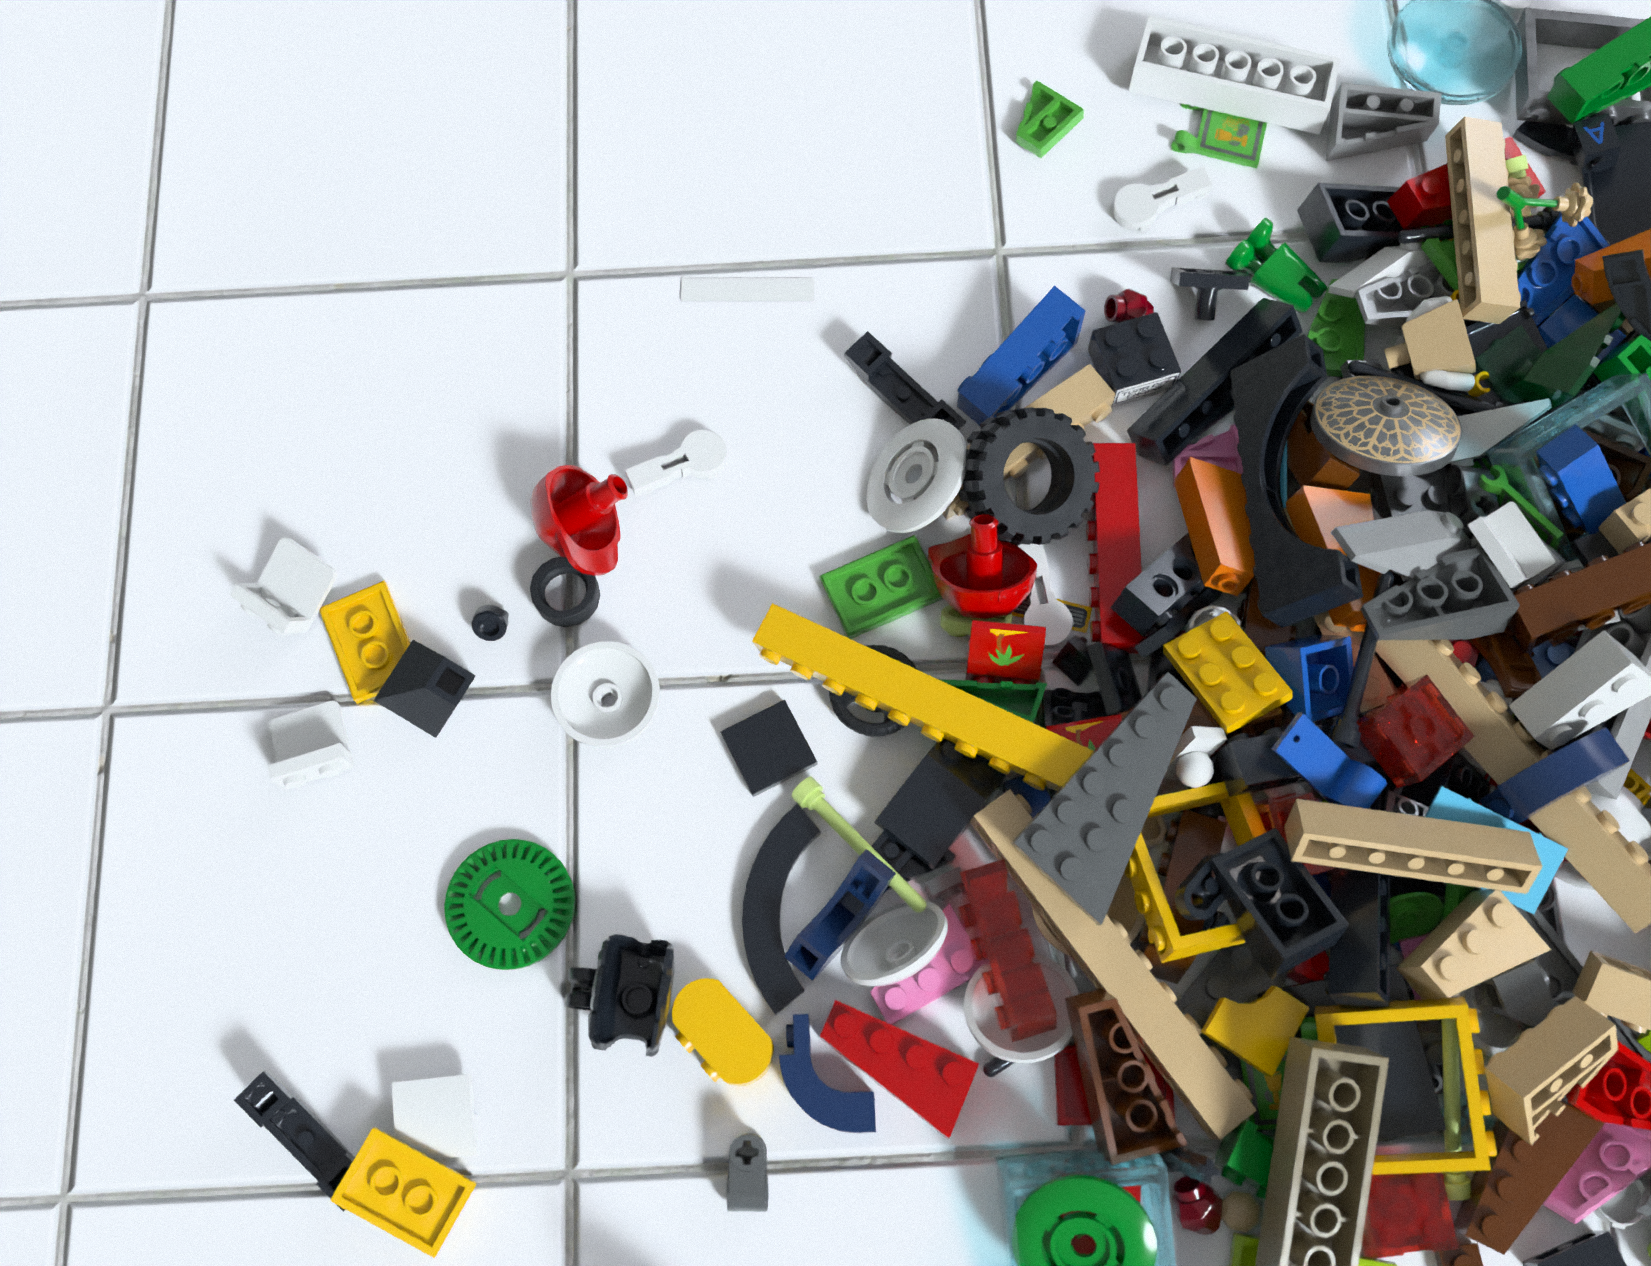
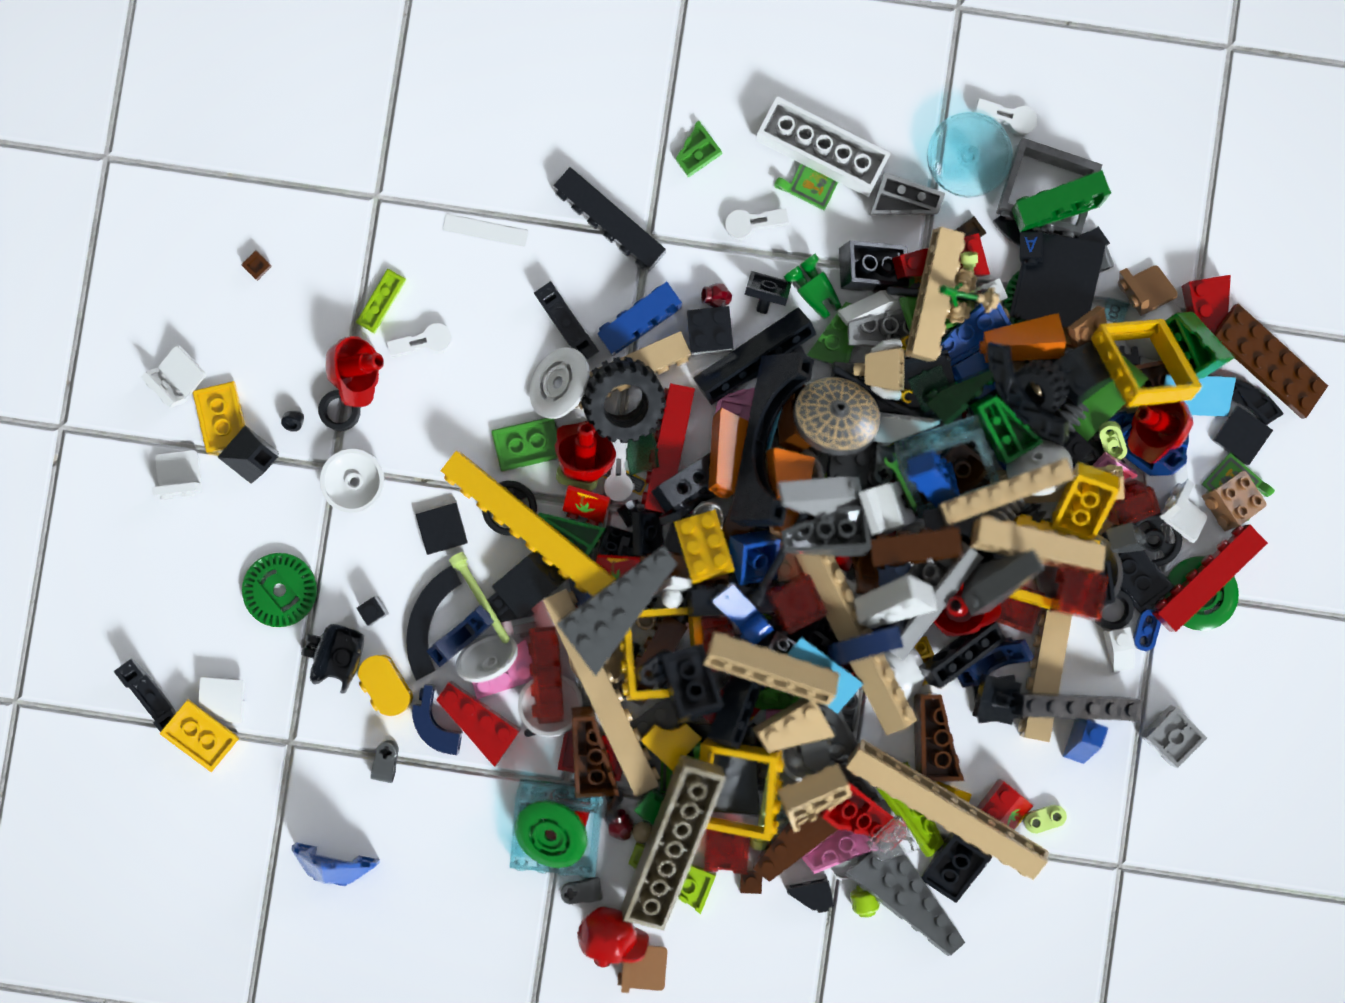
camera: 10 degrees right, 15 degrees up
(398, 401) = (256, 265): none -> reddish brown plate
(603, 418) = (381, 301): none -> lime tile
(677, 905) = (372, 610): none -> black brick
(937, 234) = (610, 219): none -> black brick
(1076, 561) = (642, 454): none -> piece

